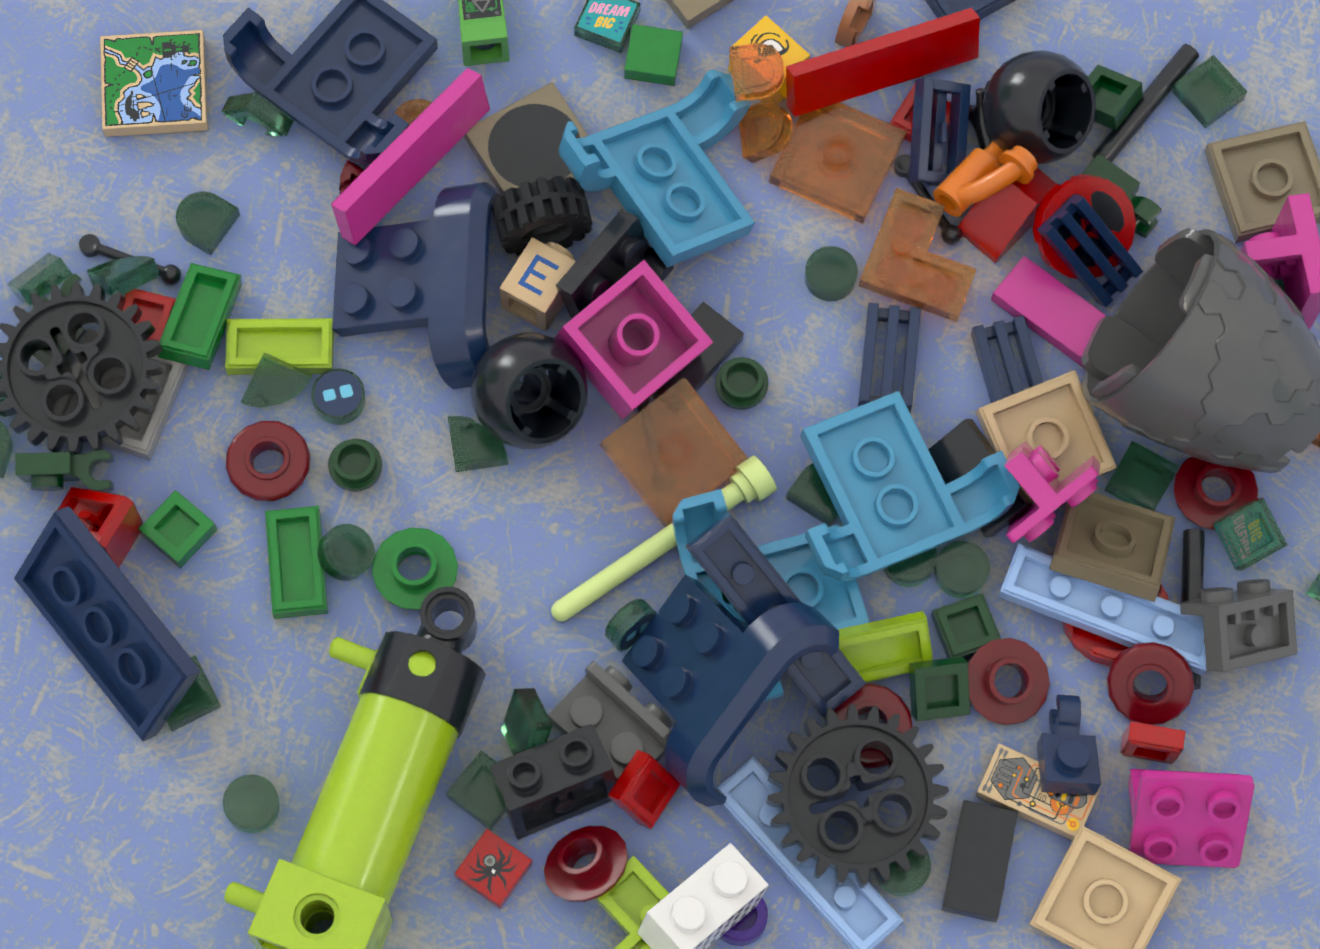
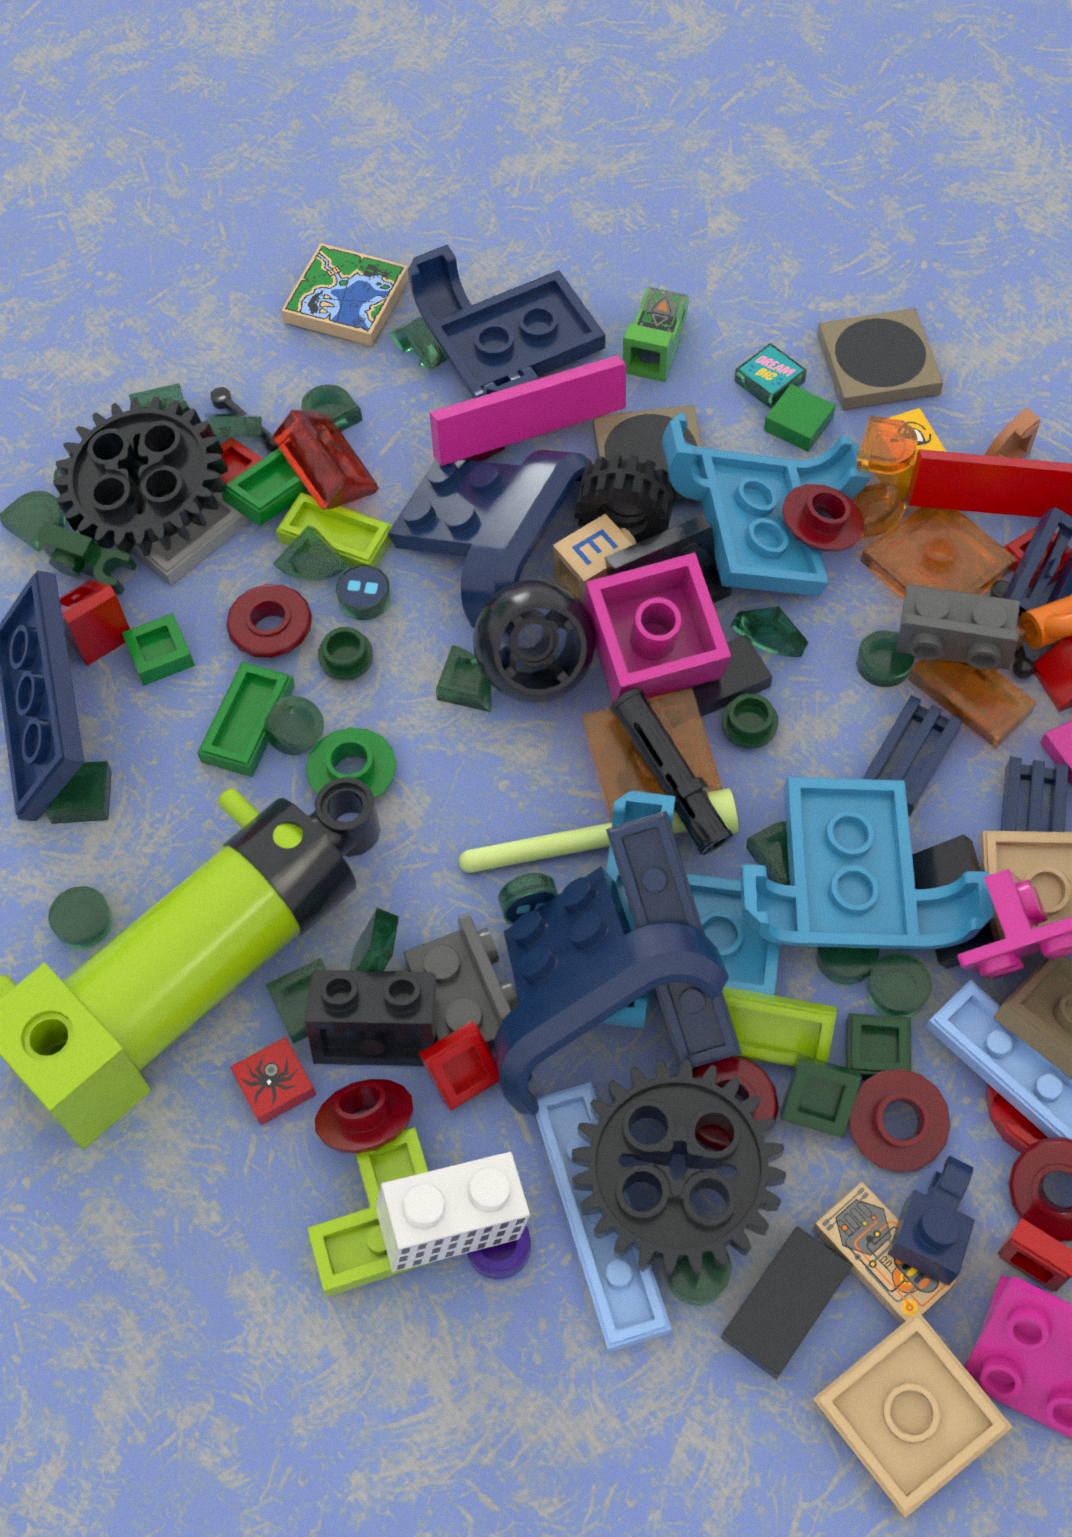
camera: 30 degrees right, 10 degrees down
(236, 279) = (323, 459): none -> clear red slope
(703, 463) = (671, 771): none -> black pin
(719, 177) = (817, 531): none -> dark red piece
(722, 289) = (770, 631): none -> clear green tile
(886, 227) = (958, 627): none -> dark grey bracket

